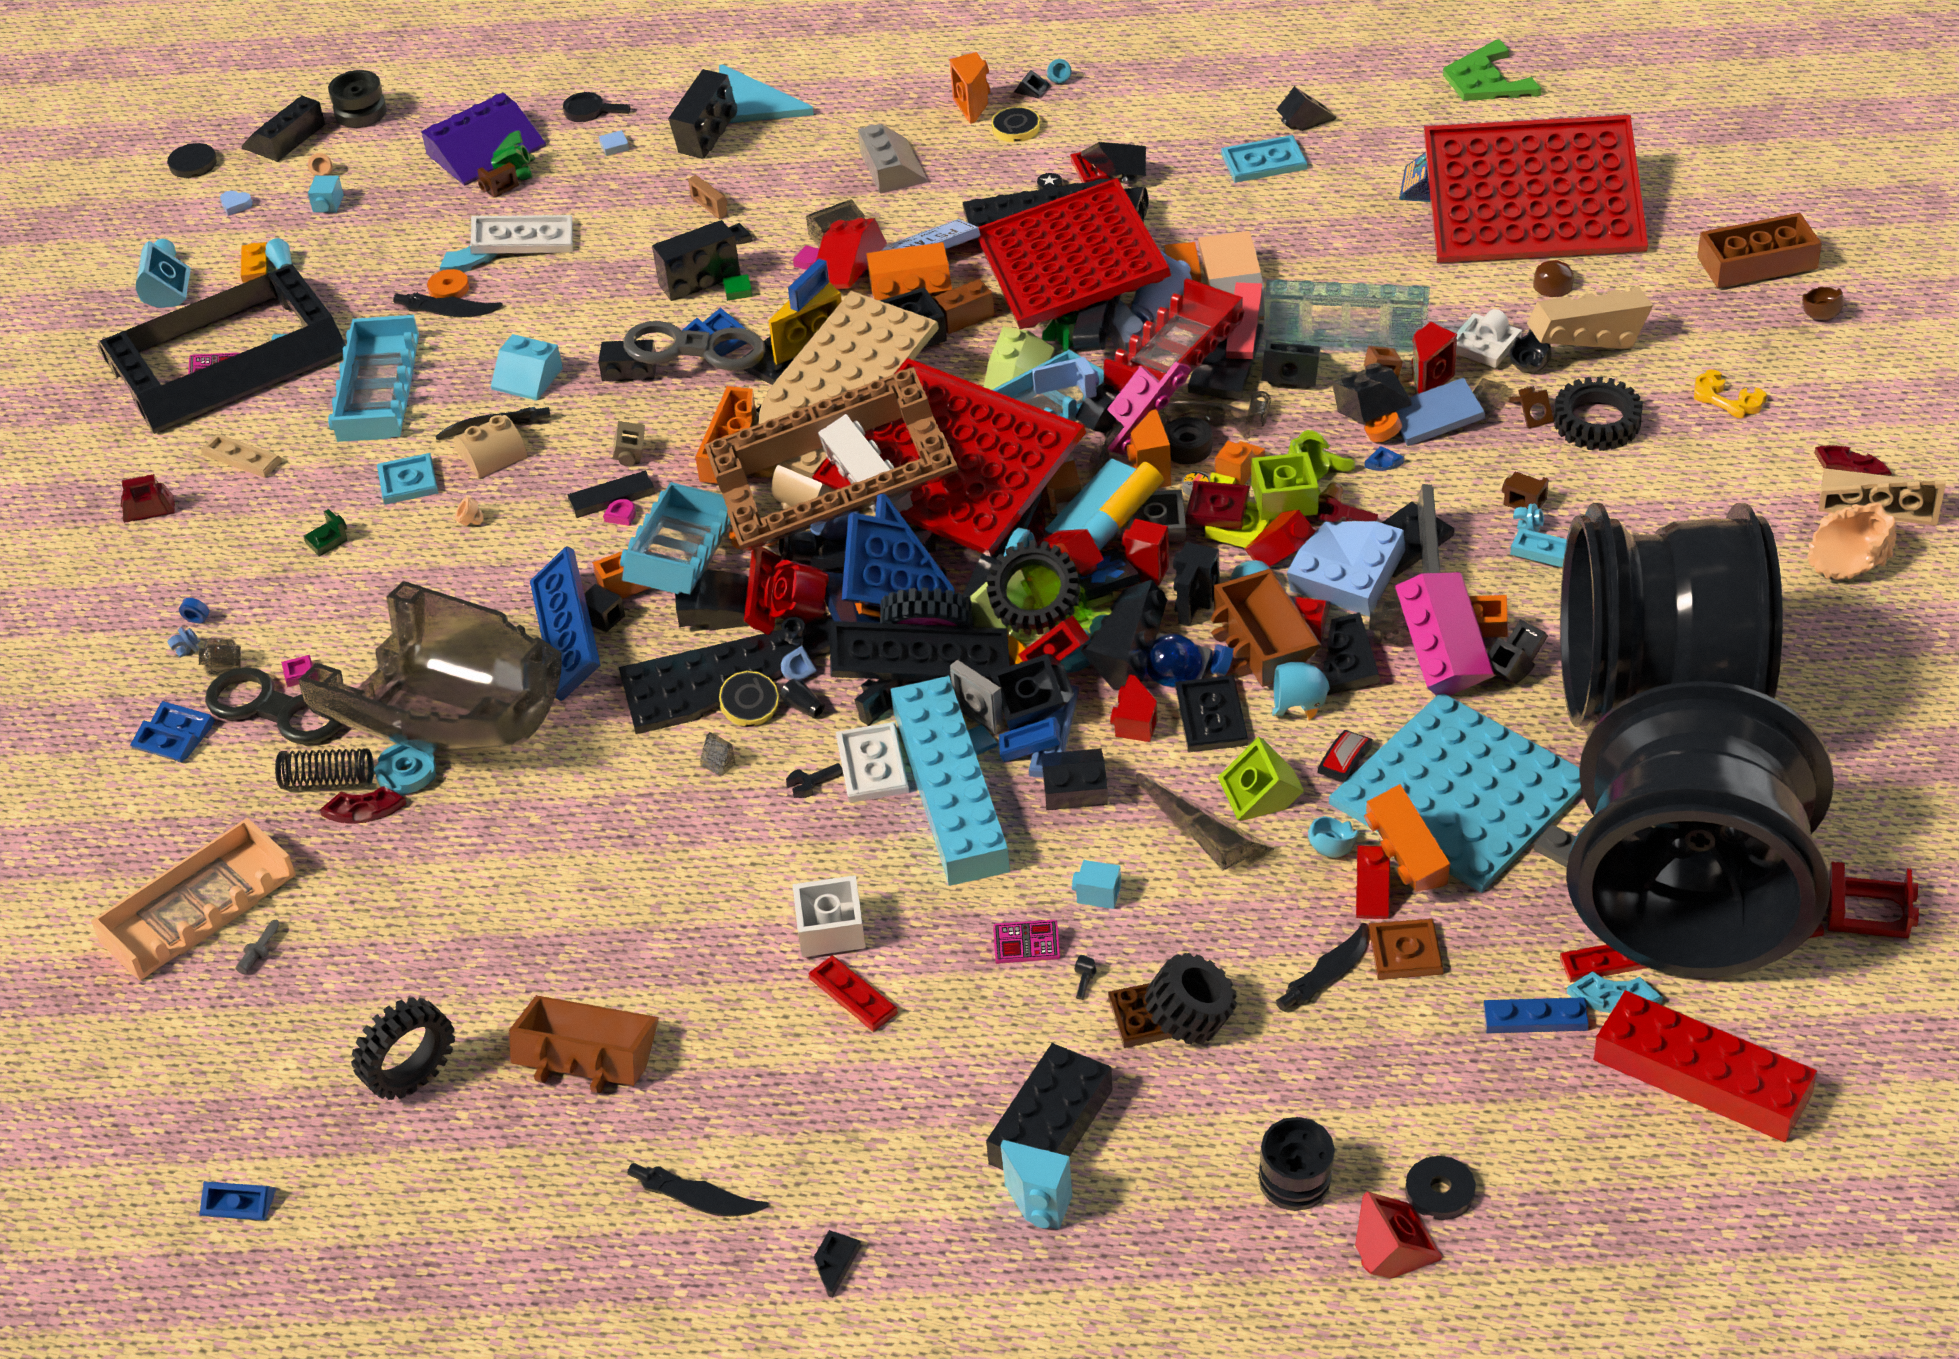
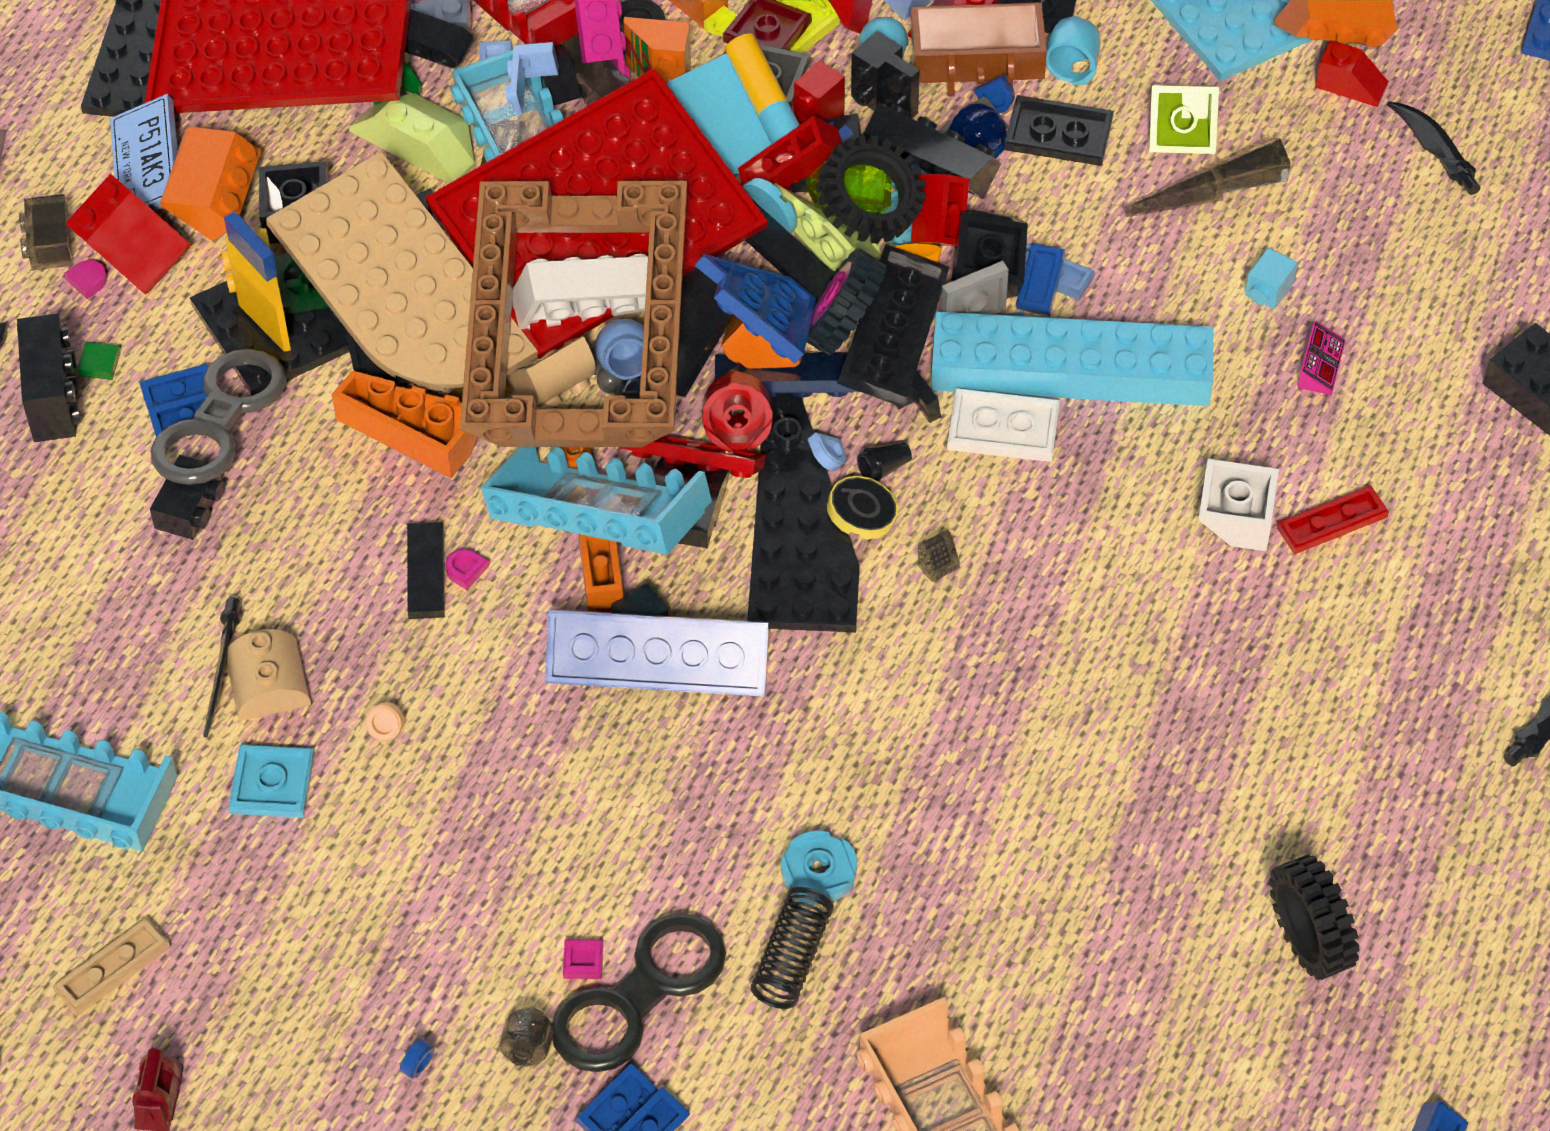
camera: 75 degrees left, 10 degrees up
(186, 640) = (471, 1071): medium blue plate -> none
(258, 950) = (1056, 1071): dark grey piece -> none
(328, 535) = (339, 885): dark green bracket -> none
(362, 808) = (861, 925): dark red tile -> none
(444, 678) = (736, 774): clear smoke windscreen -> none
(526, 367) = (135, 606): medium azure slope -> none
(582, 1041) = (1329, 763): dark orange piece -> none
(628, 449) = (353, 527): dark tan brick -> none
(810, 780) = (1007, 483): black bar -> none
(966, 305) = (281, 143): dark orange slope -> none
(1049, 180) = (94, 20): black tile -> none
(1074, 779) = (1117, 254): black slope -> none
(1087, 968) = (1373, 320): black hand -> none
(1132, 1017) = (1445, 292): reddish brown tile -> none
(1136, 712) = (1038, 182): red slope -> none
(1189, 478) = (705, 43): tile -> none
(1190, 998) = (1467, 241): black tyre -> none
(1332, 837) = (1282, 85): medium azure hair -> none
(1344, 755) = (1172, 45): slope -> none
(1405, 949) = (1434, 82): dark orange tile -> none

